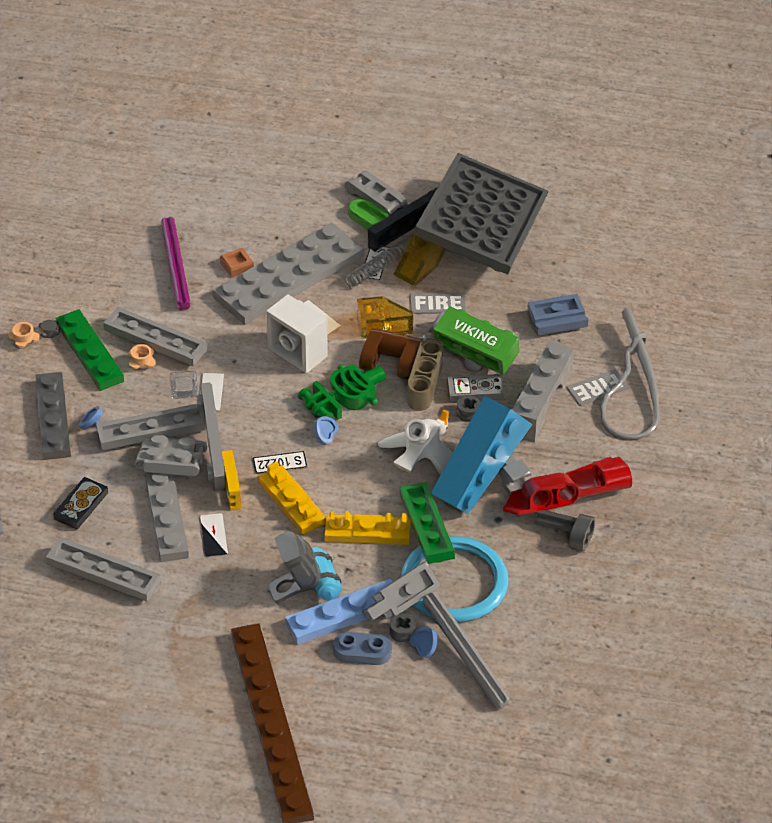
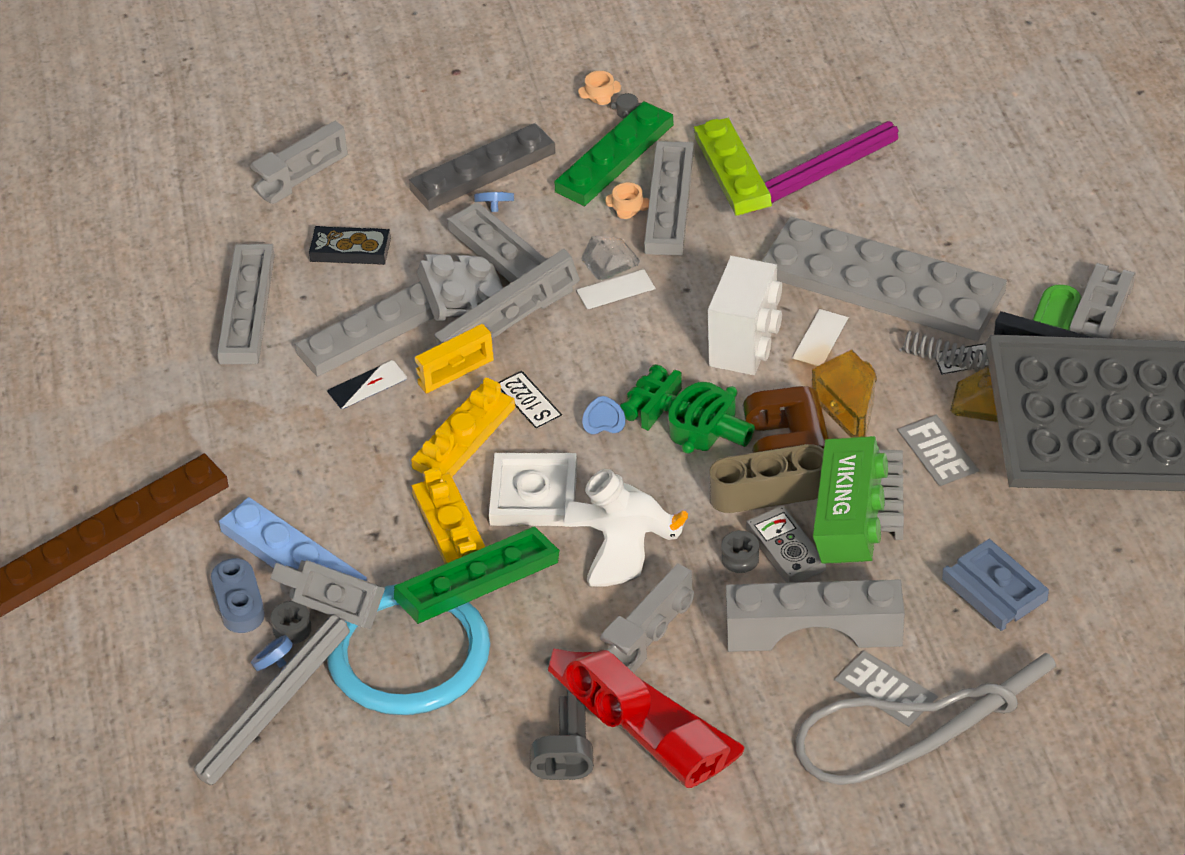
camera: 70 degrees right, 0 degrees up
(152, 297) = (732, 166): none -> lime plate
(236, 262) = (866, 221): nougat tile -> none
(307, 566) = (320, 474): dark grey piece -> none
(361, 482) = (532, 488): none -> white tile
(480, 454) = (617, 574): dark azure wedge -> none

